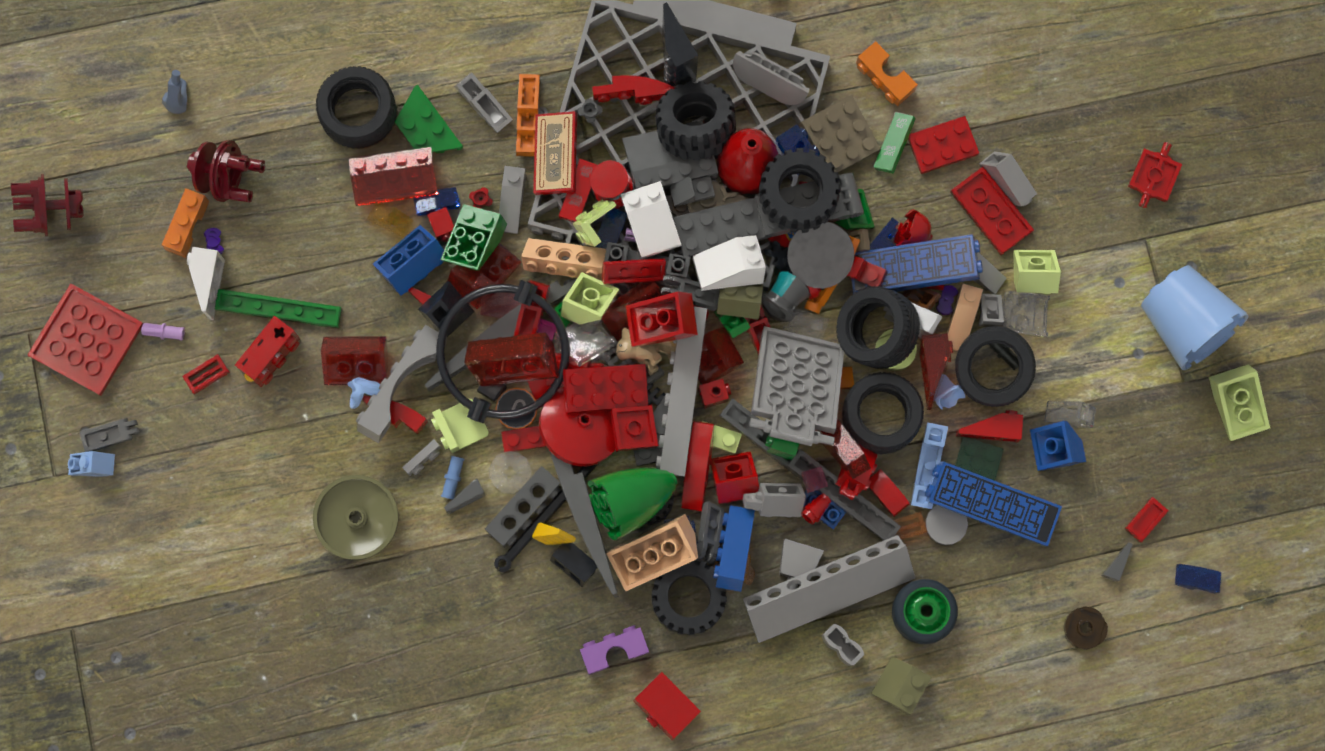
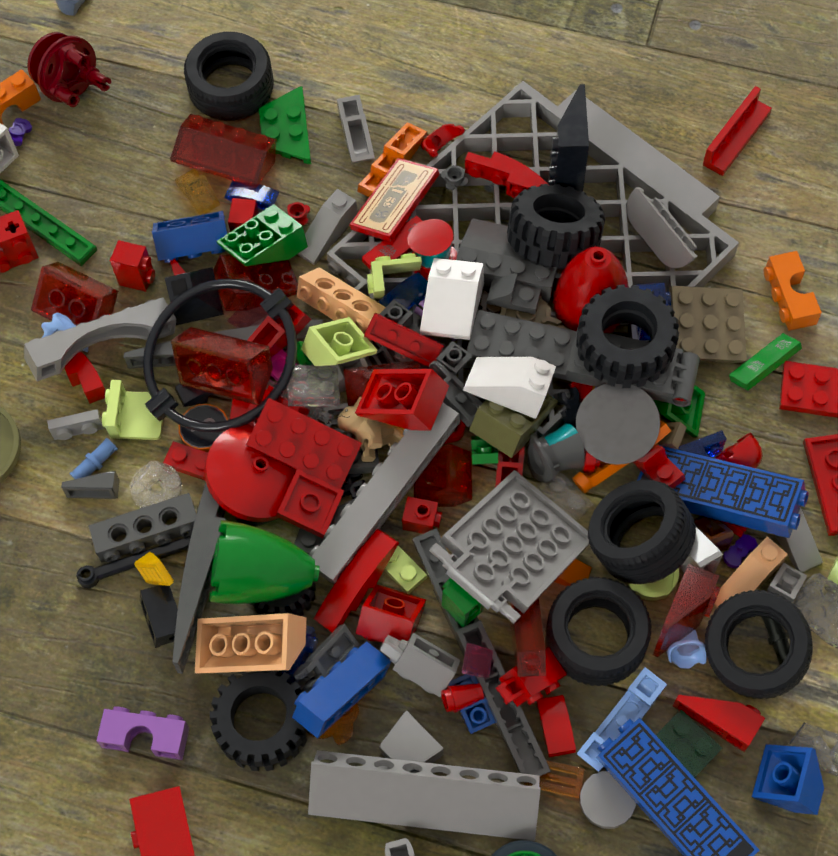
camera: 35 degrees right, 15 degrees down
(386, 311) = (132, 266): none -> red brick
(553, 77) = (440, 137): none -> red helmet

